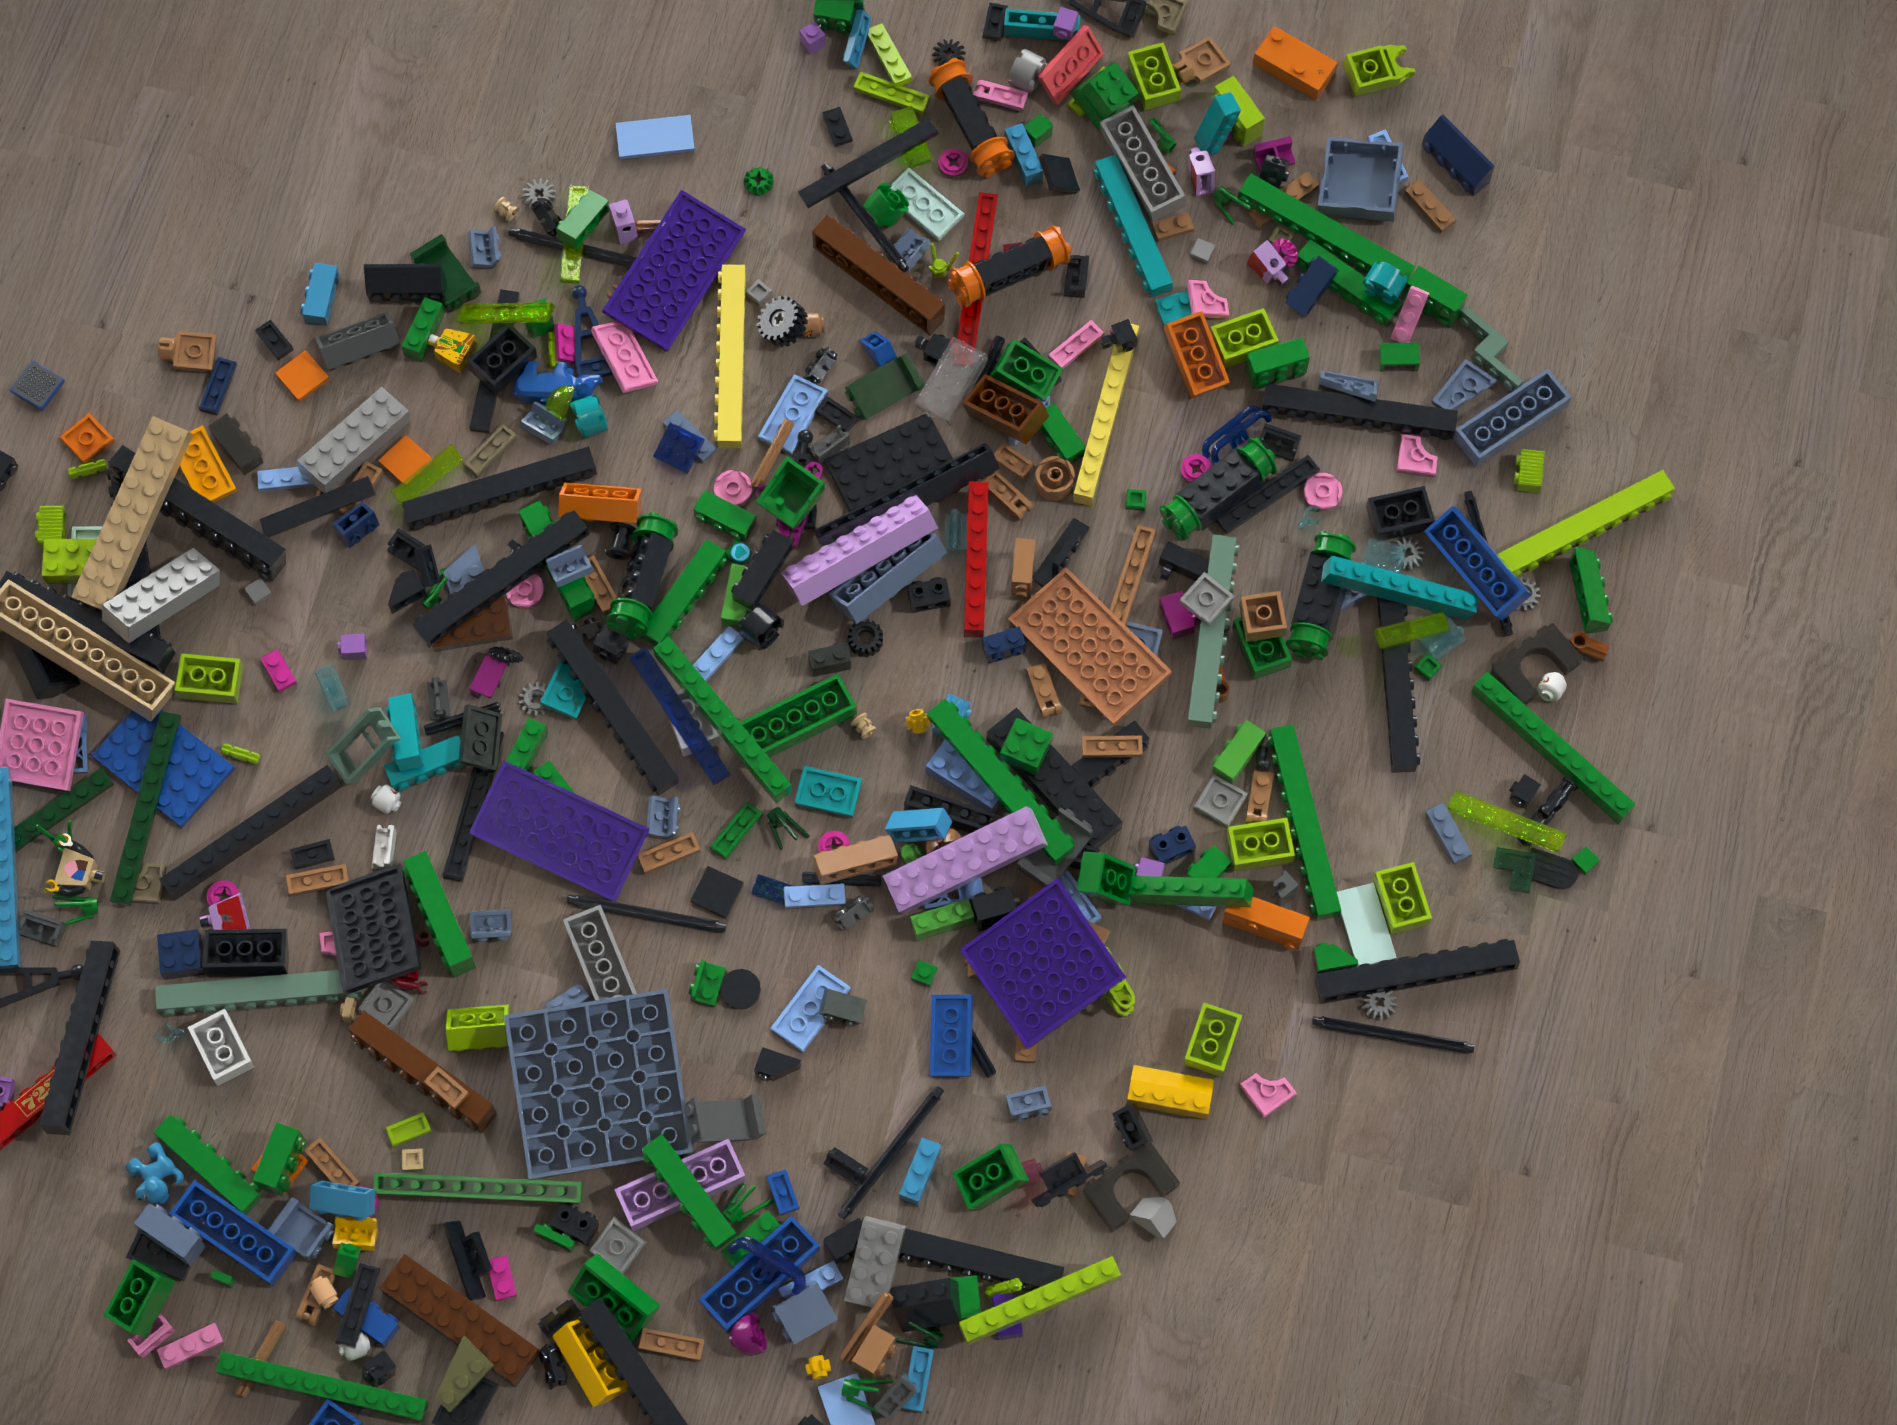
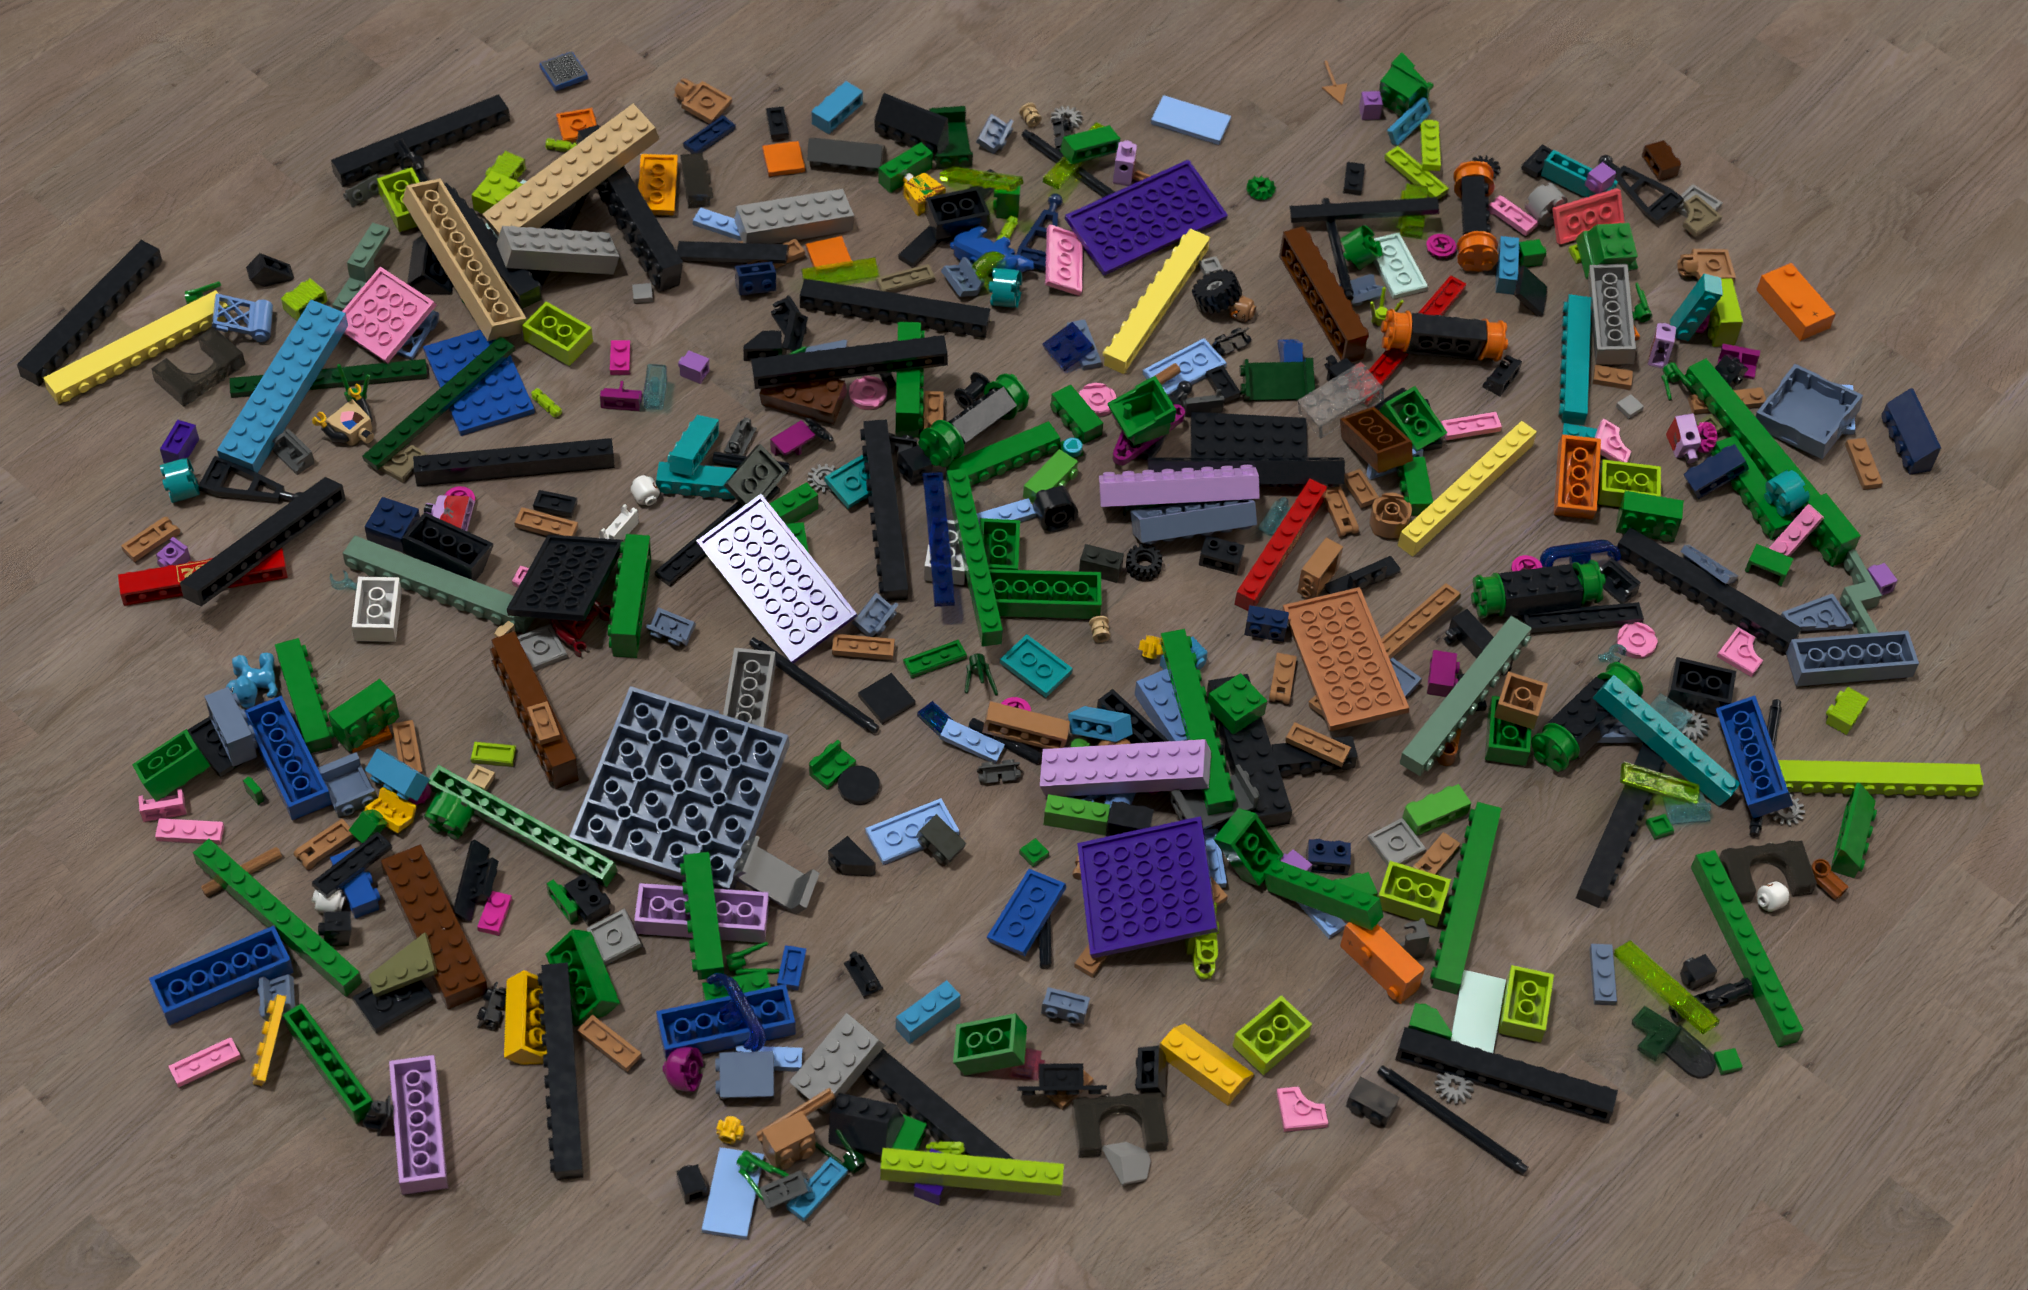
camera: 25 degrees right, 15 degrees down
(88, 906) = (341, 453): green plant -> none
(305, 713) = (620, 398): none -> magenta panel
(323, 1292) = (330, 840): light nougat brick -> none
(385, 731) = (626, 437): sand green door -> none
(409, 1211) = (448, 815): none -> green brick
(476, 1027) = (597, 699): lime slope -> none
(552, 1323) = (512, 966): black hinge -> none
(564, 343) = (1019, 229): dark pink plate -> none
(569, 566) = (914, 377): sand blue bracket -> none
(601, 502) = (975, 353): orange brick -> none
(735, 689) = (1001, 542): none -> green brick
(762, 570) = (1083, 462): black brick -> none
(769, 34) = (1335, 91): none -> medium nougat piece
(843, 1242) = (815, 1032): black slope -> none
(890, 1153) = (911, 984): black piece -> none
(1121, 336) = (1515, 427): black brick -> none
(1136, 499) = (1456, 568): green tile -> none
(1153, 76) = (1659, 256): lime brick -> none
(1206, 599) = (1475, 663): light grey tile -> none
(1261, 761) = (1454, 829): black arm -> none
(1322, 1055) = (1372, 1102): none -> black brick
(1375, 69) = (1869, 336): lime brick -> none
(1499, 321) = (1883, 578): none -> medium lavender brick

